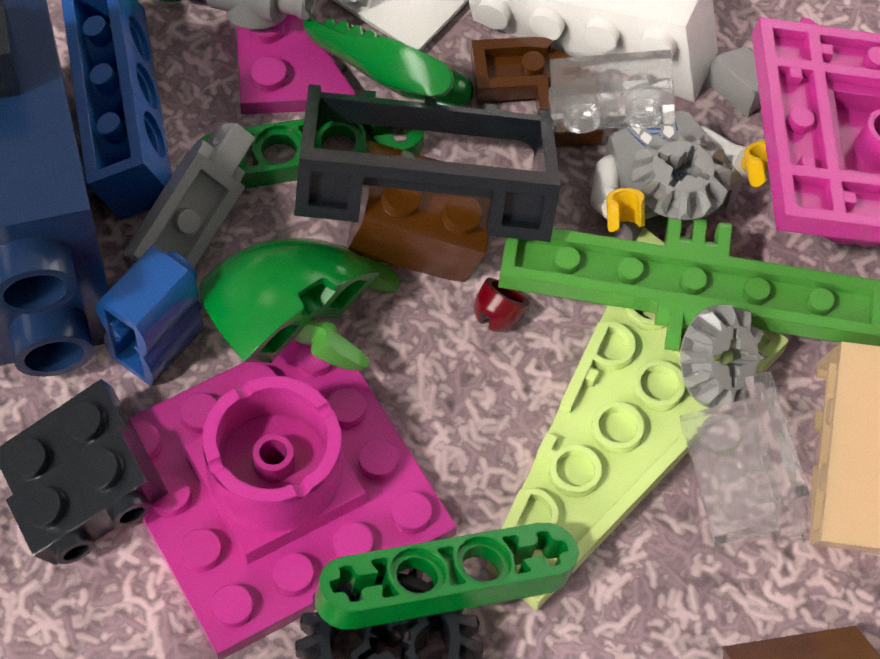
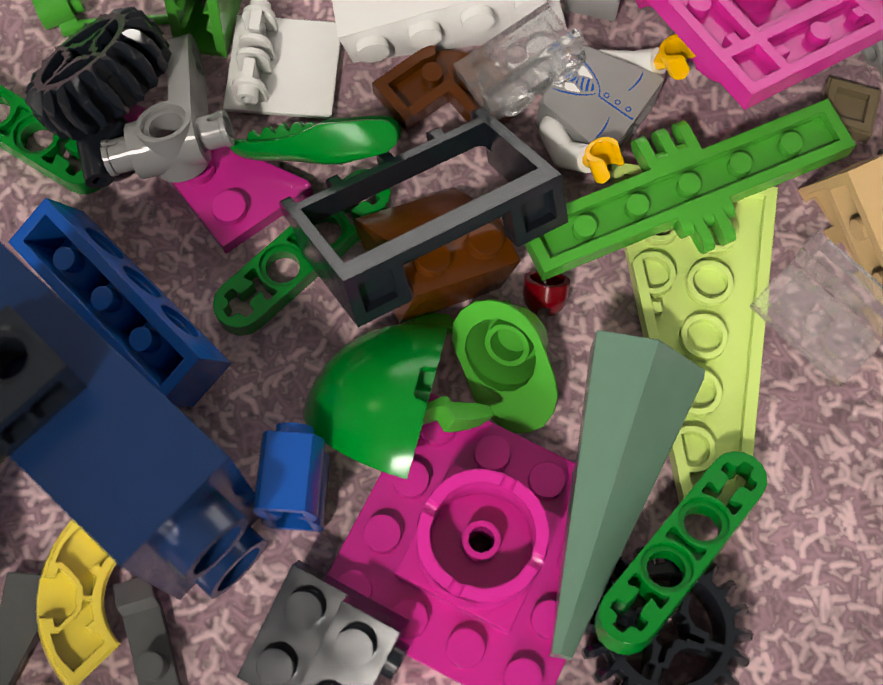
camera: 30 degrees left, 10 degrees up
(195, 197) = (252, 360): light grey hinge -> none
(415, 335) = (507, 363): none -> bright green piece
(476, 445) = (628, 425): none -> sand green wedge
(694, 195) = (604, 116): light grey gear -> none
(710, 333) = (754, 235): light grey gear -> none

